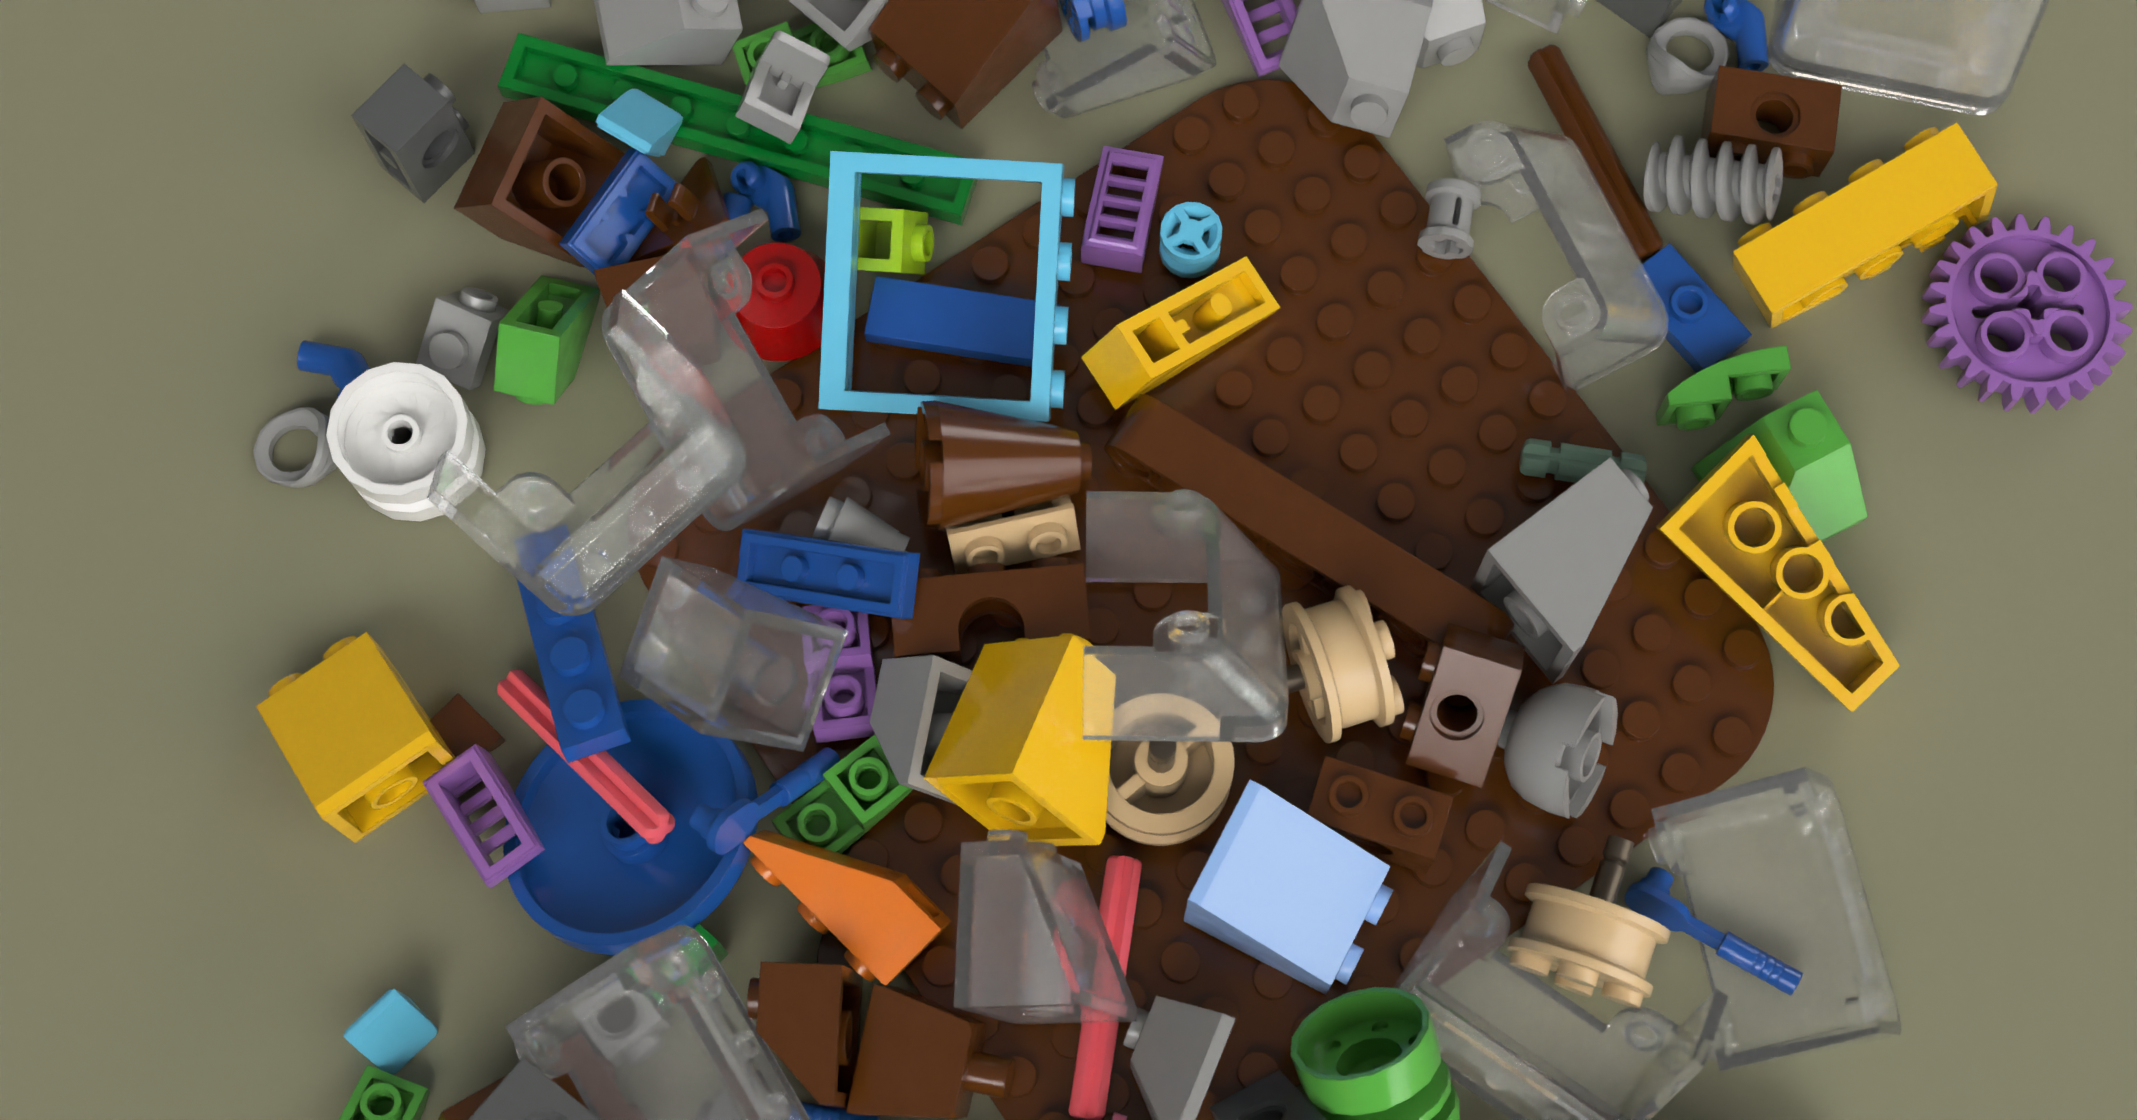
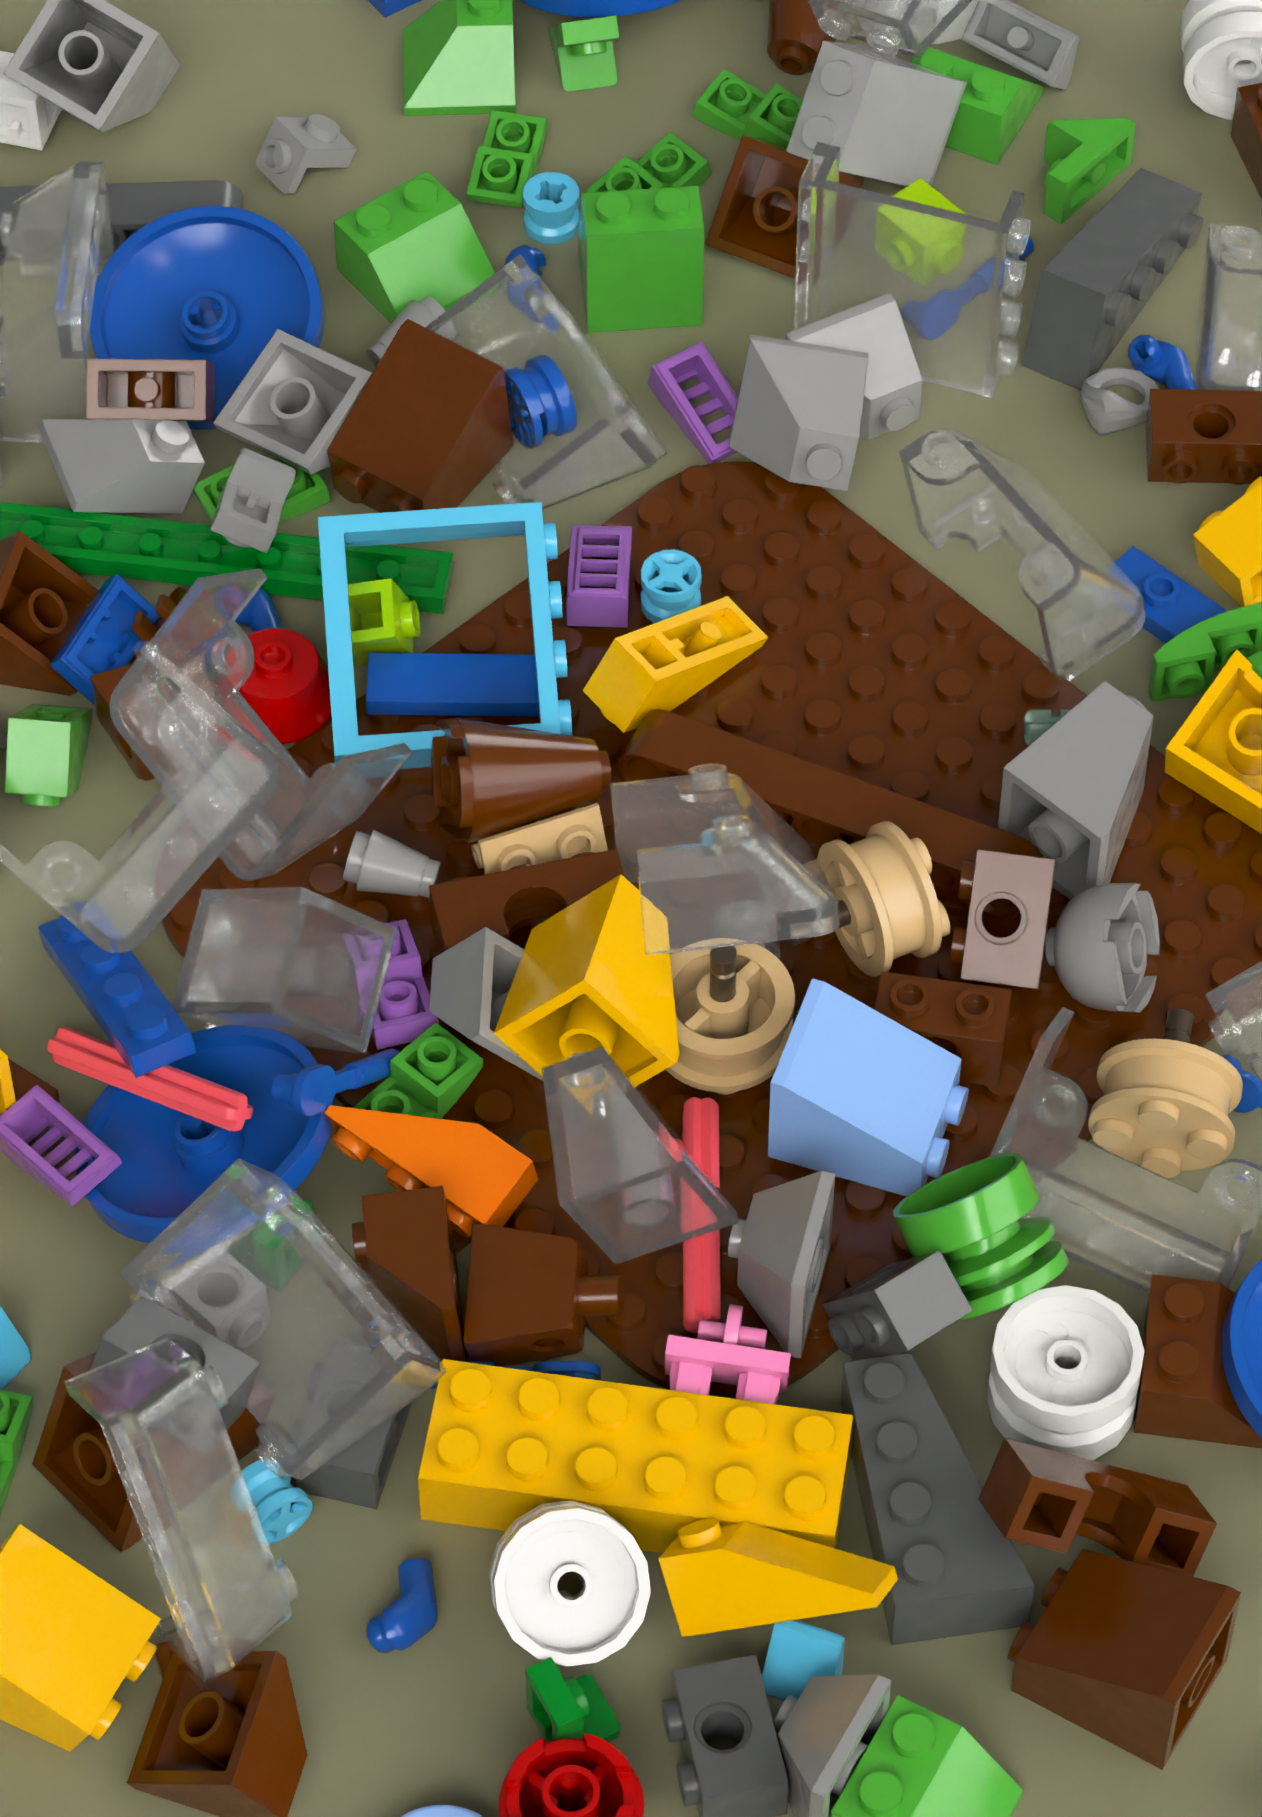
camera: 10 degrees left, 20 degrees down
(641, 122) = (116, 553): medium azure slope -> none
(830, 572) = (384, 883): blue tile -> none
(1449, 218) = (917, 542): light grey bush -> none
(1582, 126) = (1009, 440): reddish brown axle -> none
(1713, 182) = (1163, 484): light grey piece -> none

